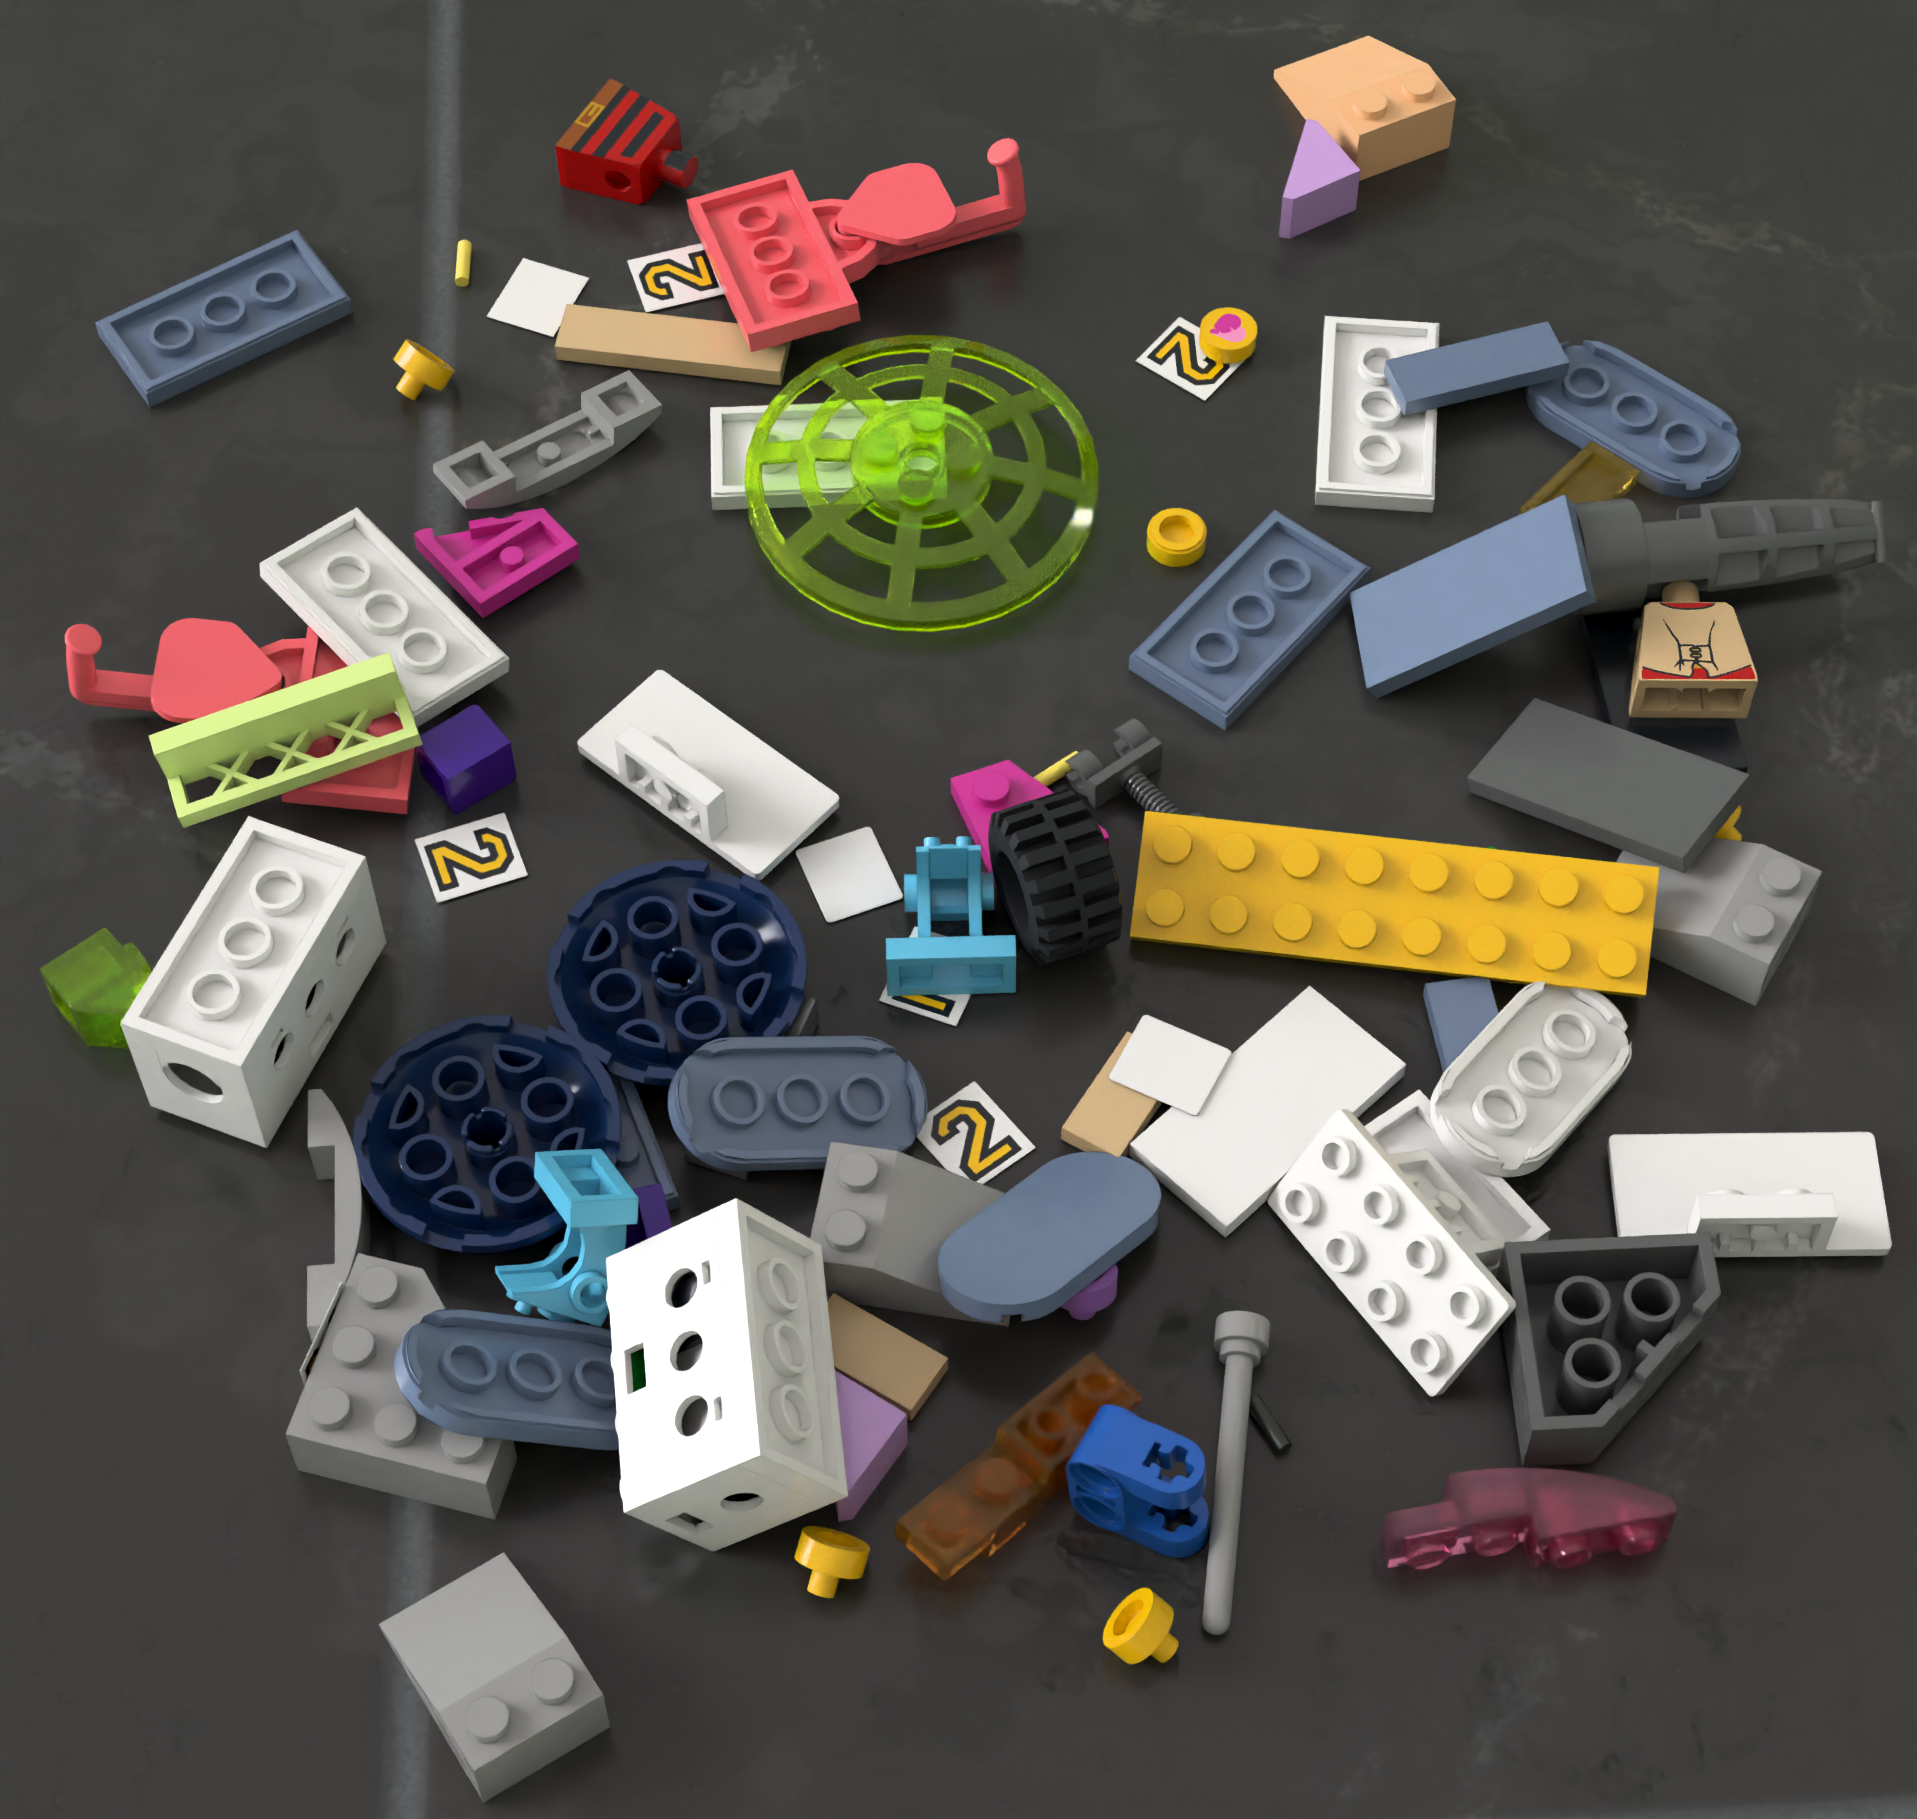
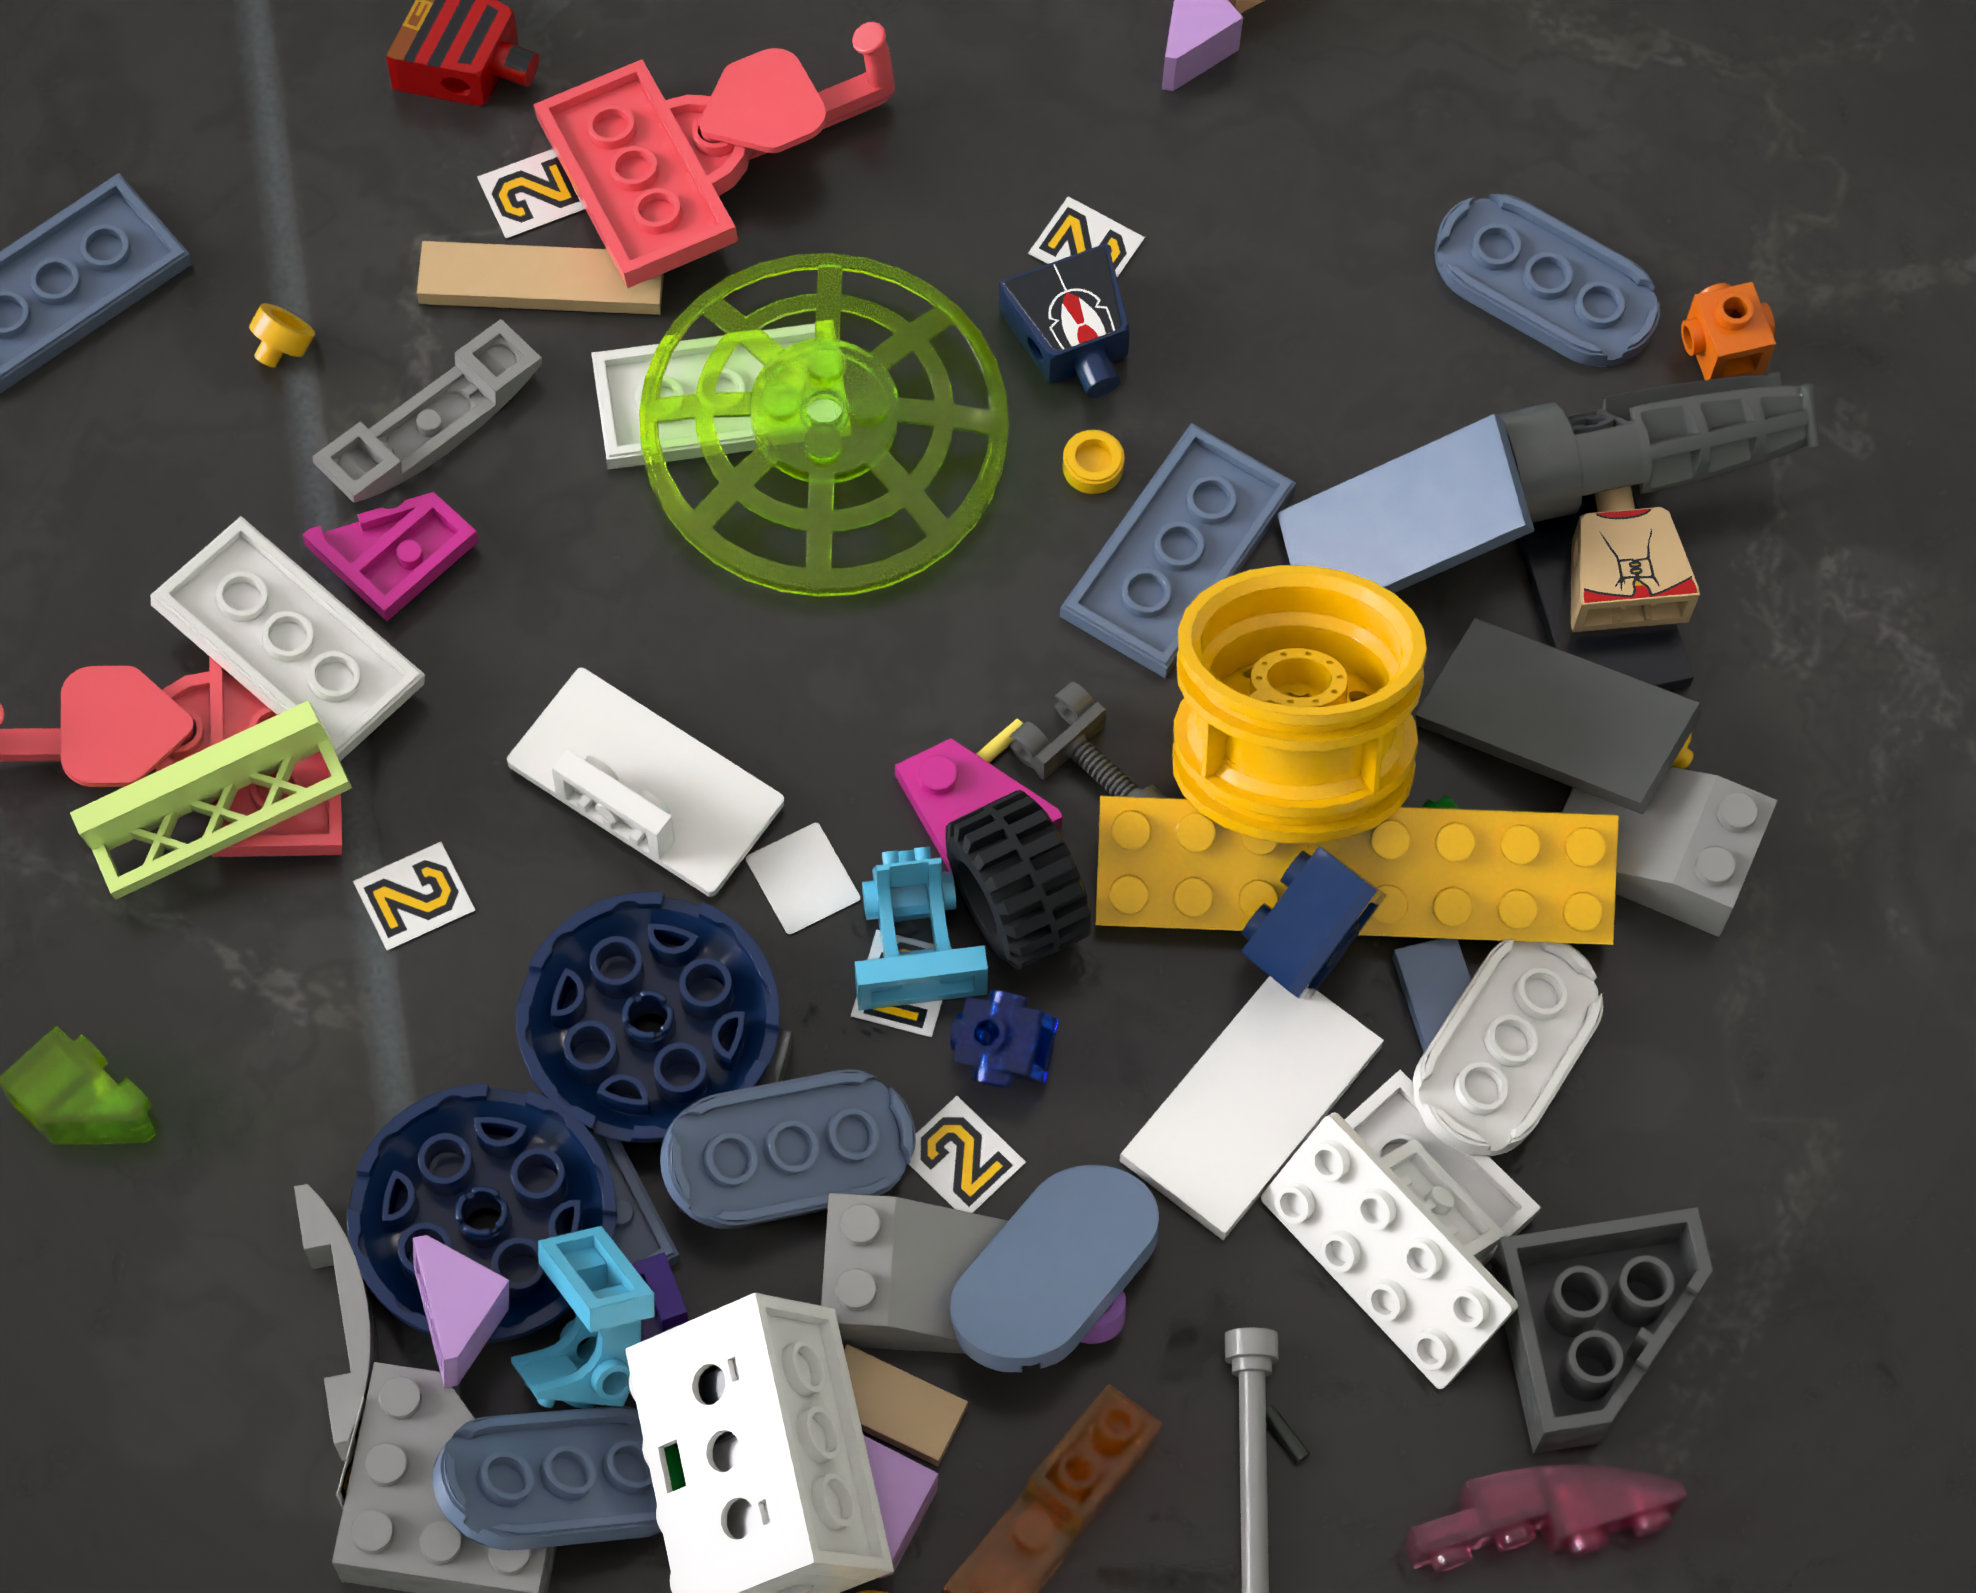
camera: 10 degrees left, 10 degrees up
(255, 981) = (225, 1077): white piece -> none
(452, 1203) = (460, 1304): none -> lavender slope
(463, 263) = (302, 195): light yellow piece -> none
(466, 759) = (395, 791): dark purple panel -> none
(537, 297) = (388, 229): white sticker -> none
(1025, 1025) = (1003, 1039): none -> clear blue brick
(1109, 1113) = (1107, 1103): tan tile -> none
(1121, 1487) = (1157, 1525): blue piece -> none
(1167, 410) = (1070, 319): none -> torso
(1170, 1065) = (1151, 1064): white sticker -> none
(1228, 335) = (1122, 218): yellow tile -> none
(1344, 936) = (1310, 922): none -> dark blue slope
(1347, 736) = (1297, 703): none -> yellow wheel
(1365, 443) = (1285, 297): white tile -> none
(1476, 368) = (1383, 241): sand blue tile -> none
(1588, 477) = (1499, 372): clear yellow tile -> none
(1753, 1191) = (1728, 1145): white bracket -> none
(1806, 462) = (1729, 331): none -> orange brick

